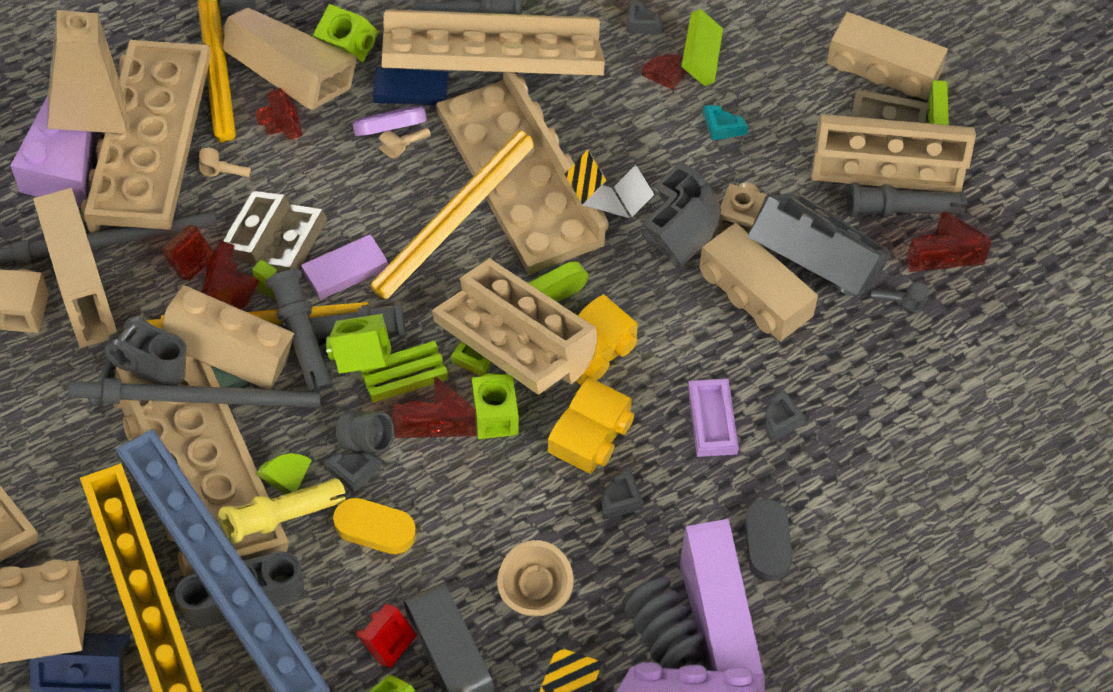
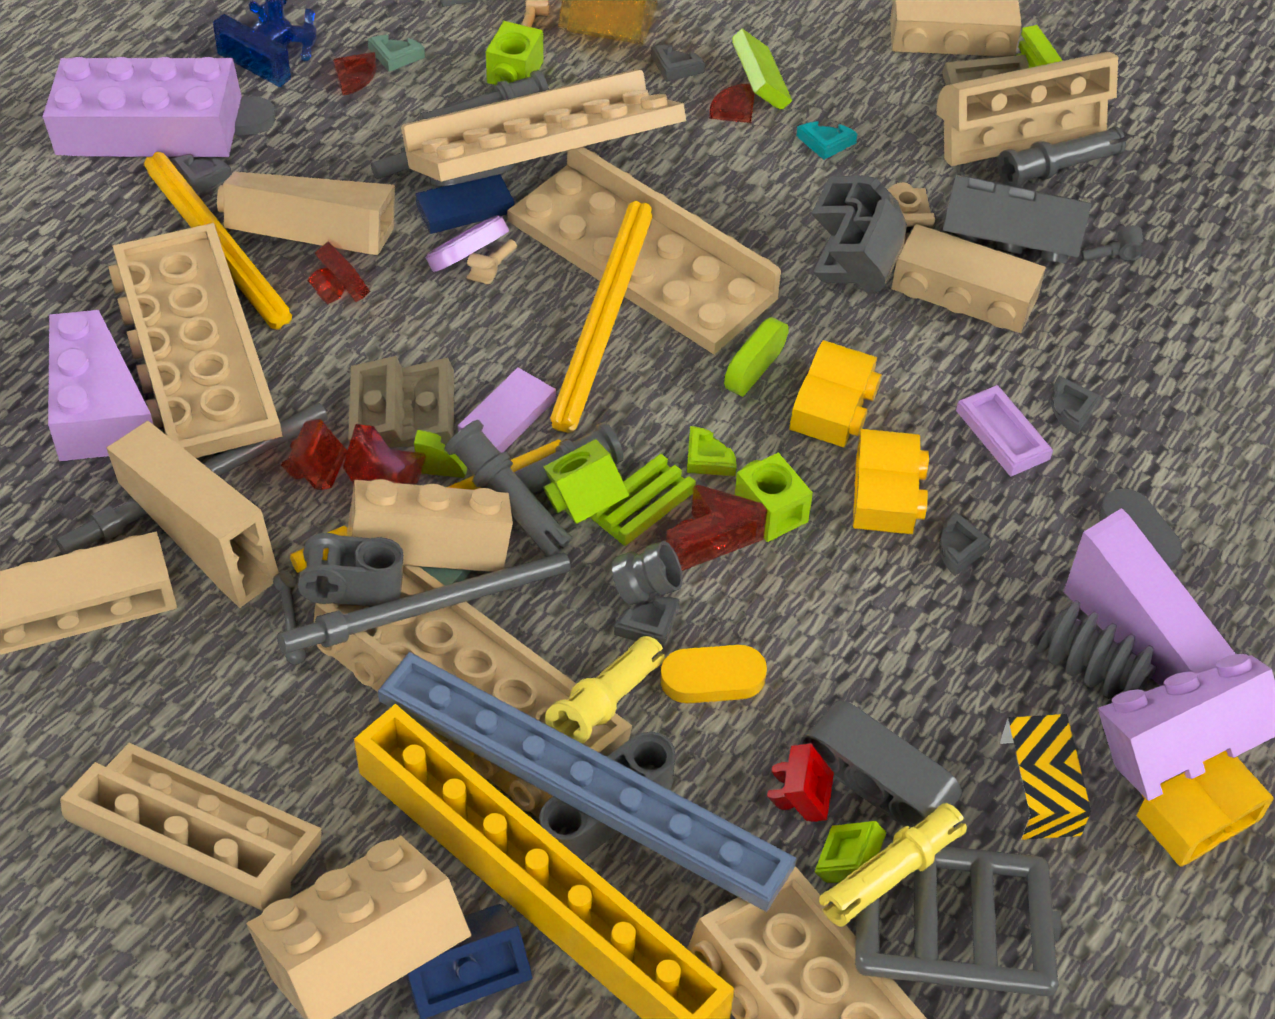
camera: 25 degrees left, 5 degrees down
(83, 78) = (109, 283): tan slope -> none
(211, 166) = (283, 356): tan hand -> none
(285, 471) = (578, 653): lime tile -> none
(346, 31) = (355, 152): lime brick -> none
(518, 327) = (758, 400): tan brick -> none
(535, 578) = (938, 655): tan helmet -> none
(588, 185) = (748, 223): white sticker -> none
(953, 247) = (1134, 181): clear red slope -> none

